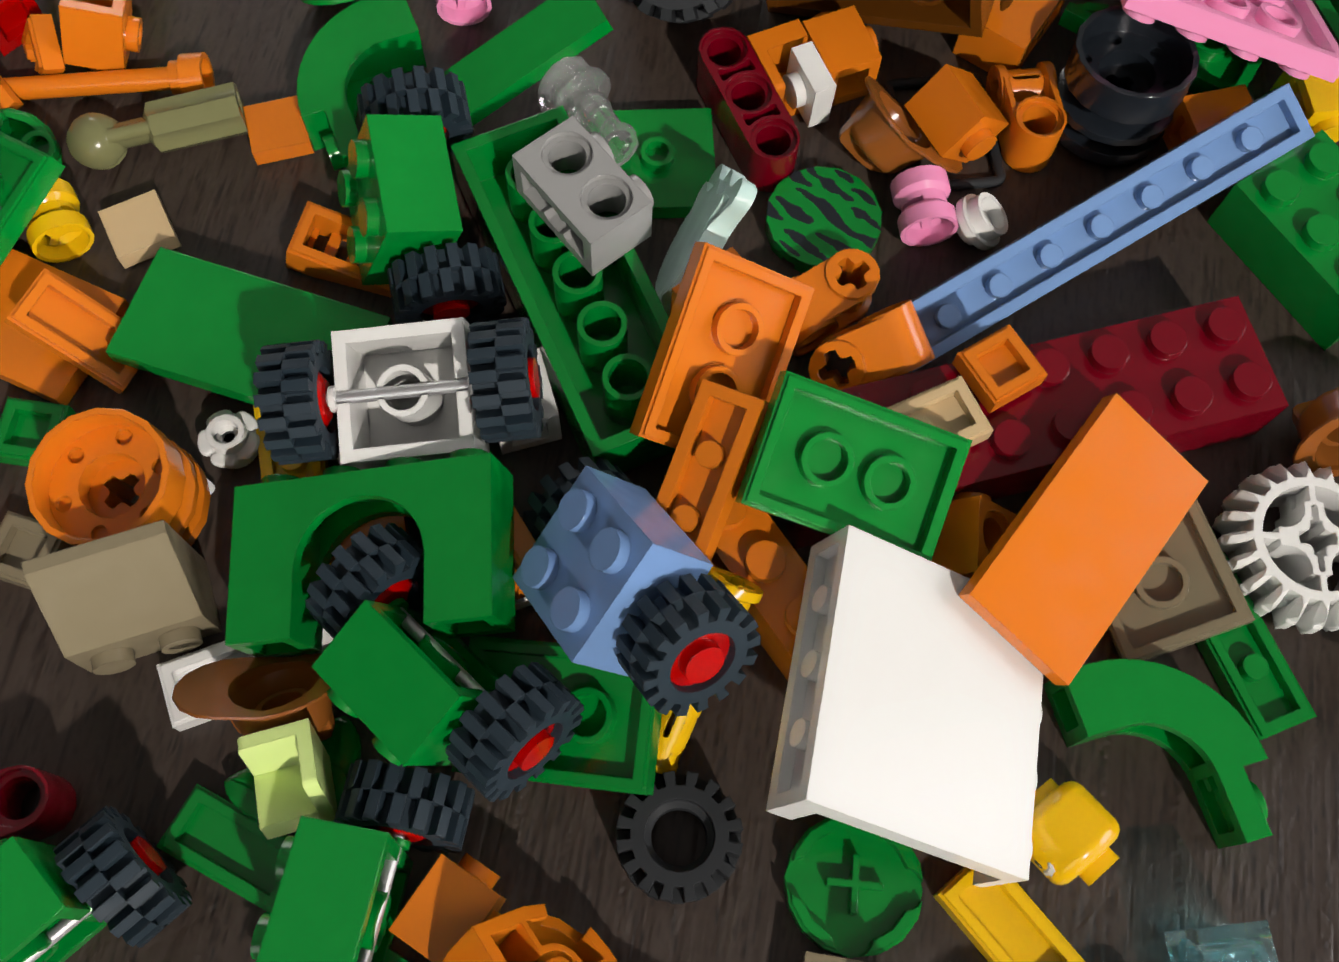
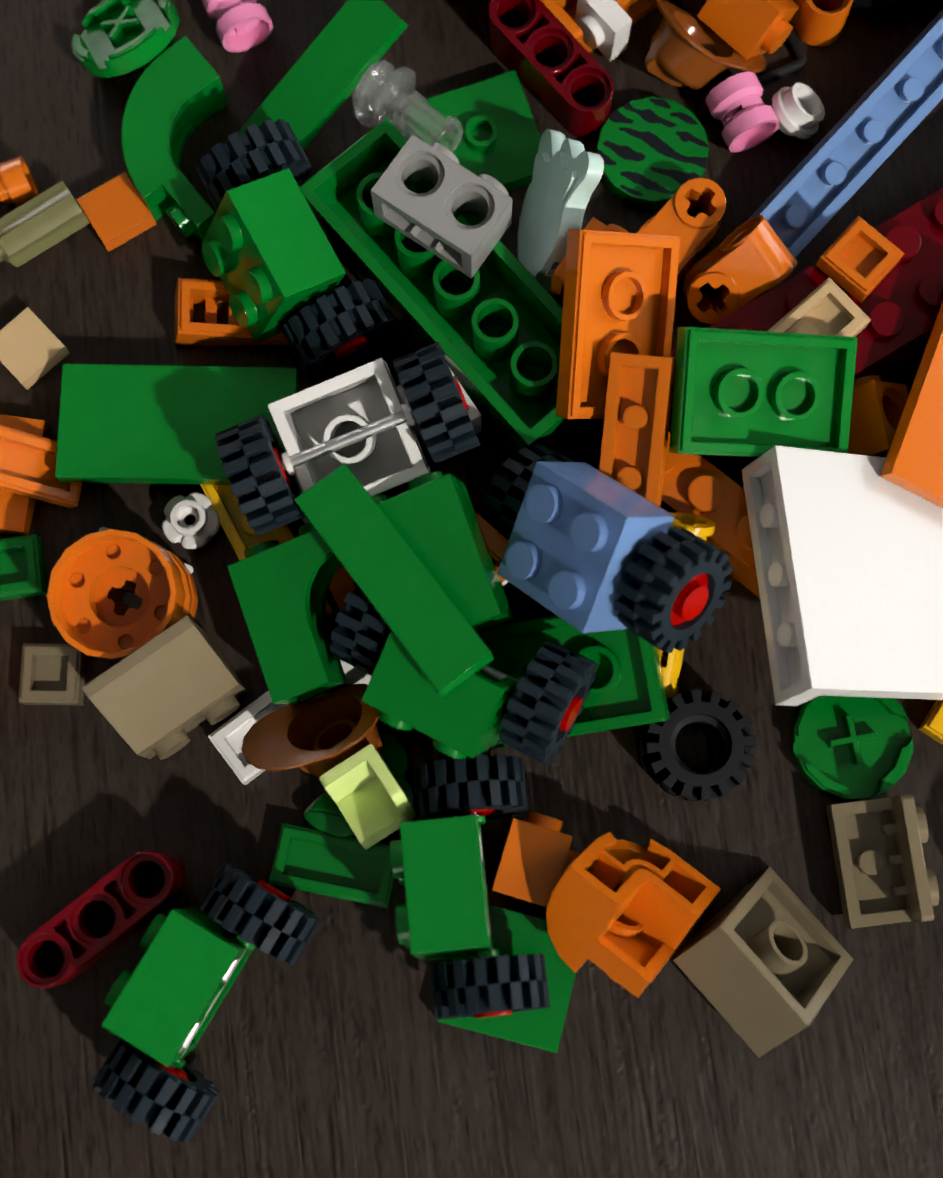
camera: 10 degrees left, 10 degrees up
(389, 549) = (394, 580): none -> green tile

